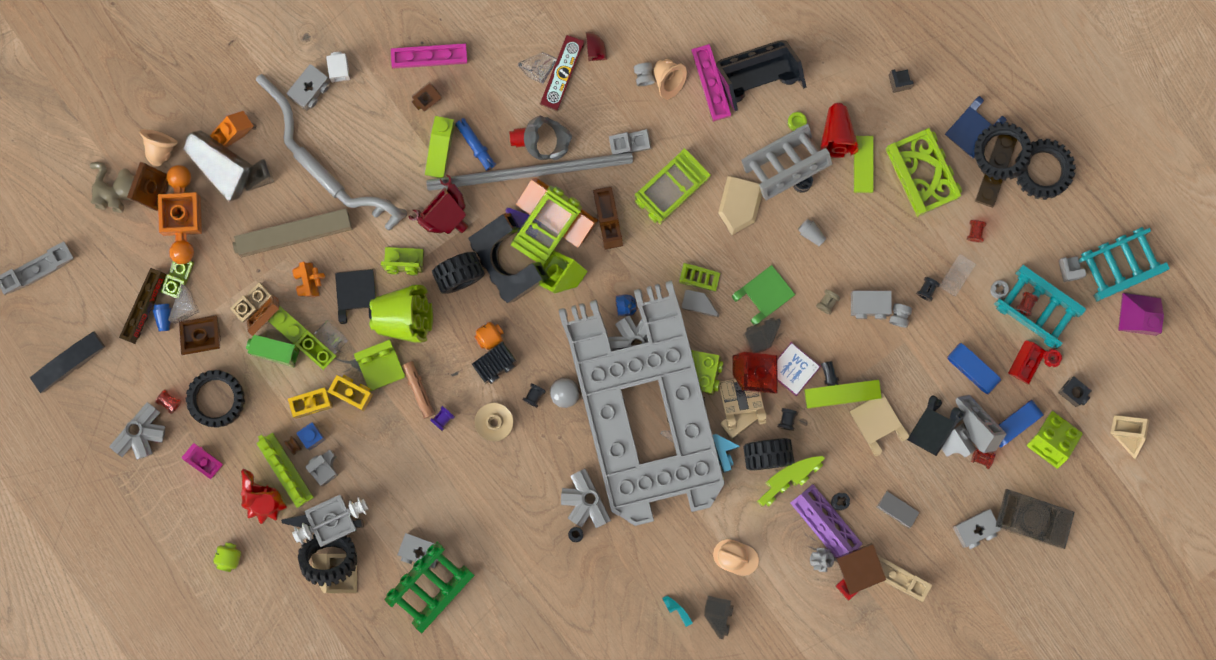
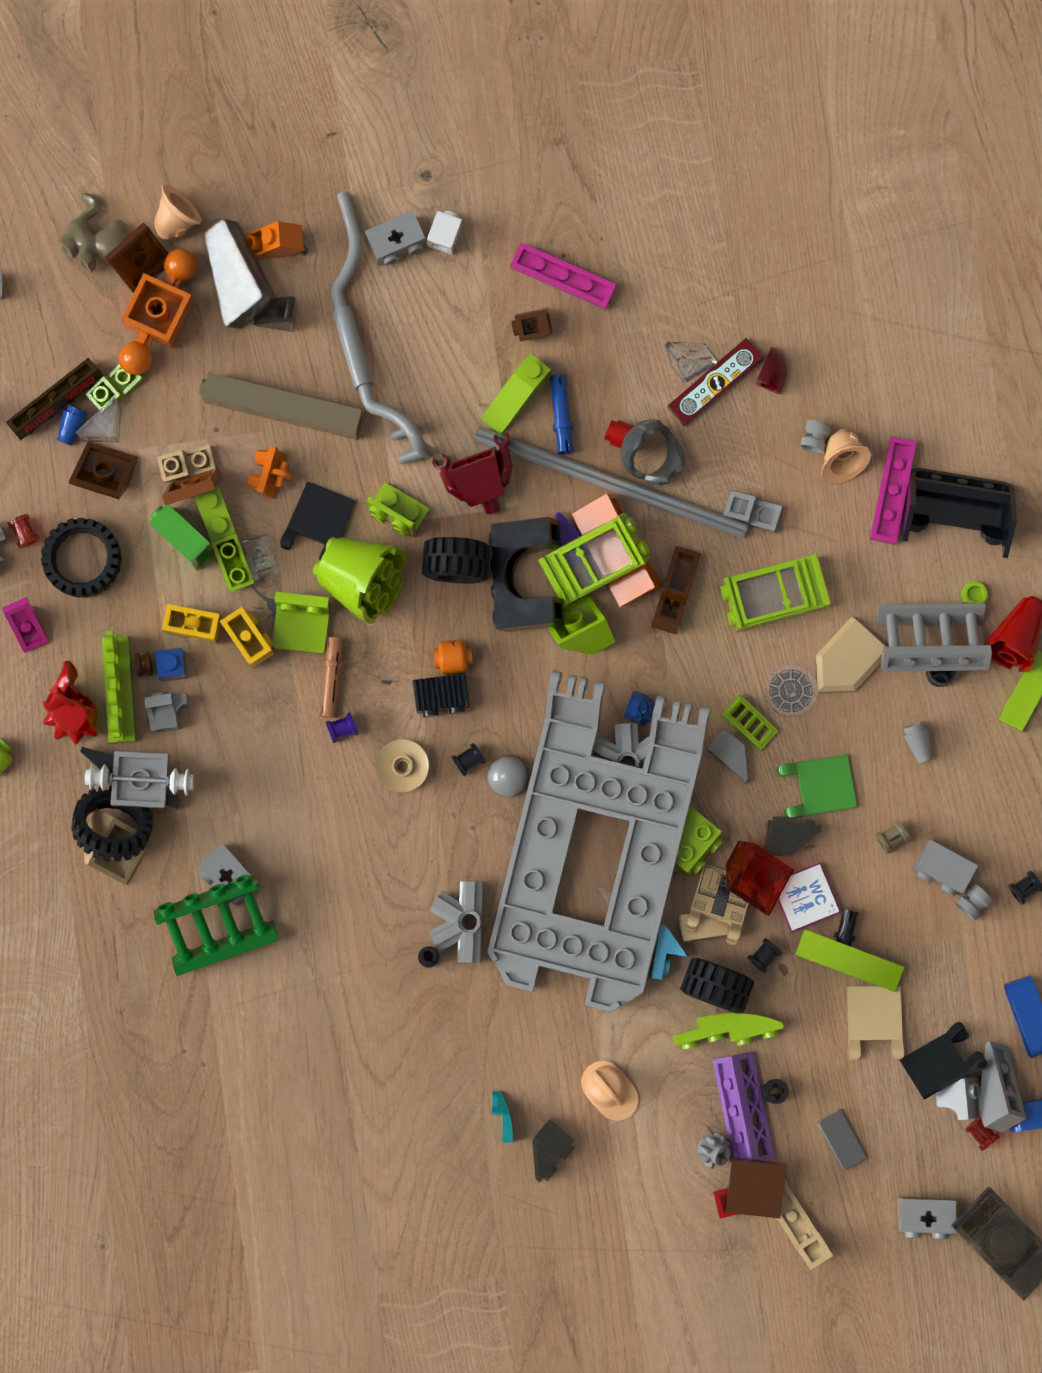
camera: 30 degrees right, 0 degrees up
(714, 243) = (791, 690): none -> clear tile

